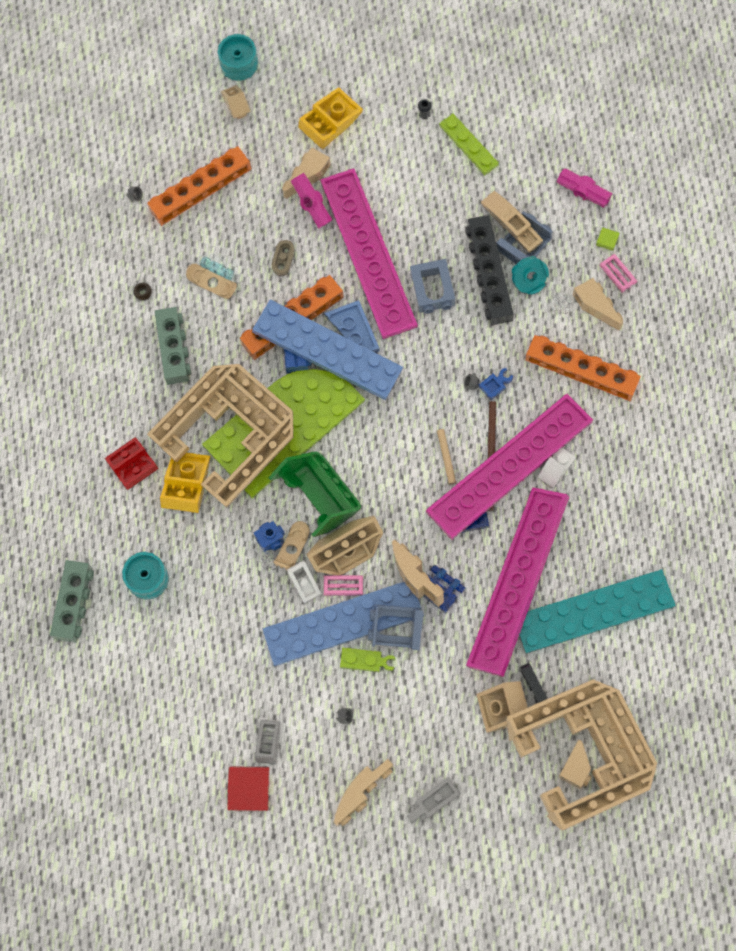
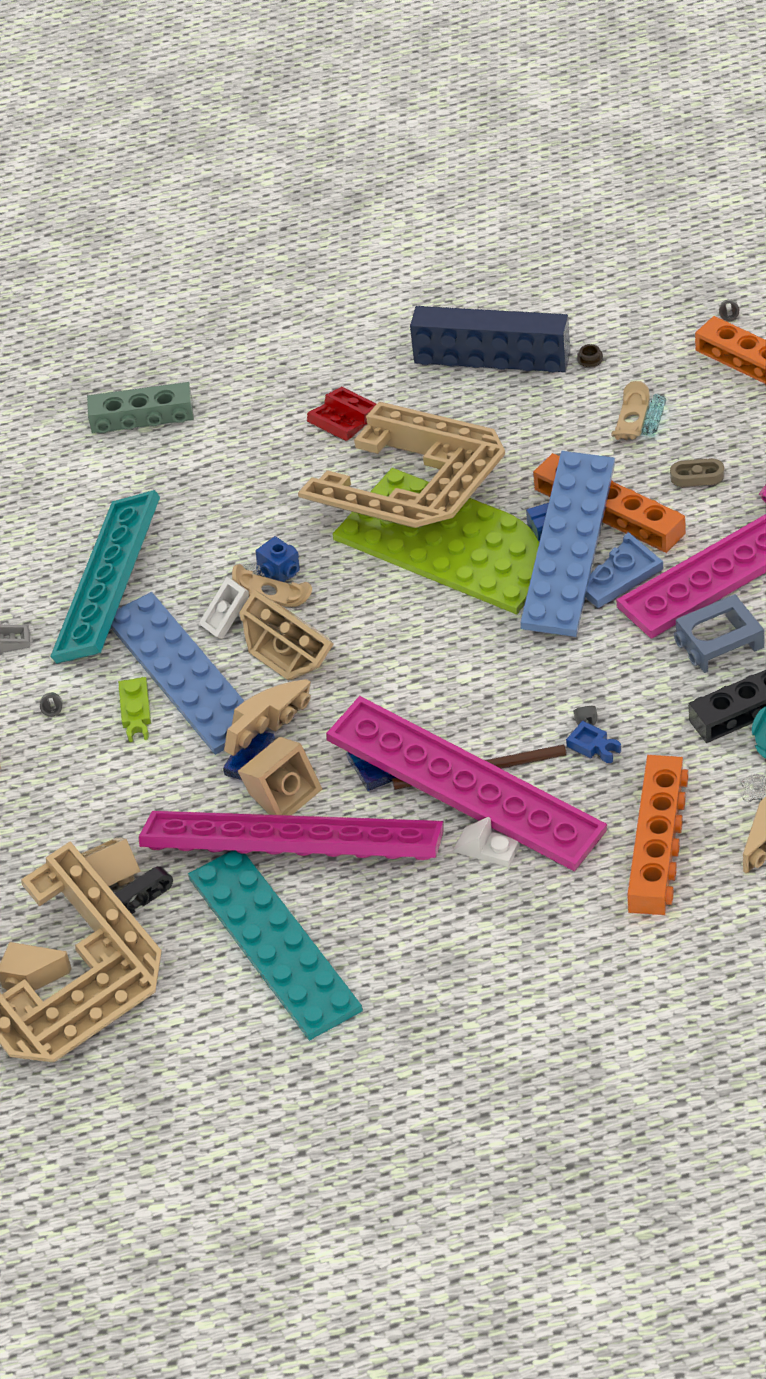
camera: 75 degrees right, 25 degrees down
(109, 347) = (490, 339): none -> dark blue brick
(135, 576) = (190, 459): teal wheel -> none
(164, 319) = (521, 399): sand green brick -> none
(183, 483) = (335, 455): yellow slope -> none
(239, 655) = (105, 577): none -> teal plate
(321, 487) = (385, 588): green windscreen -> none
(343, 592) = (239, 674): bright pink tile -> none
(399, 641) = (180, 741): sand blue panel -> none
(446, 456) = (465, 717): tan bar -> none
(470, 577) = (281, 777): none -> tan slope

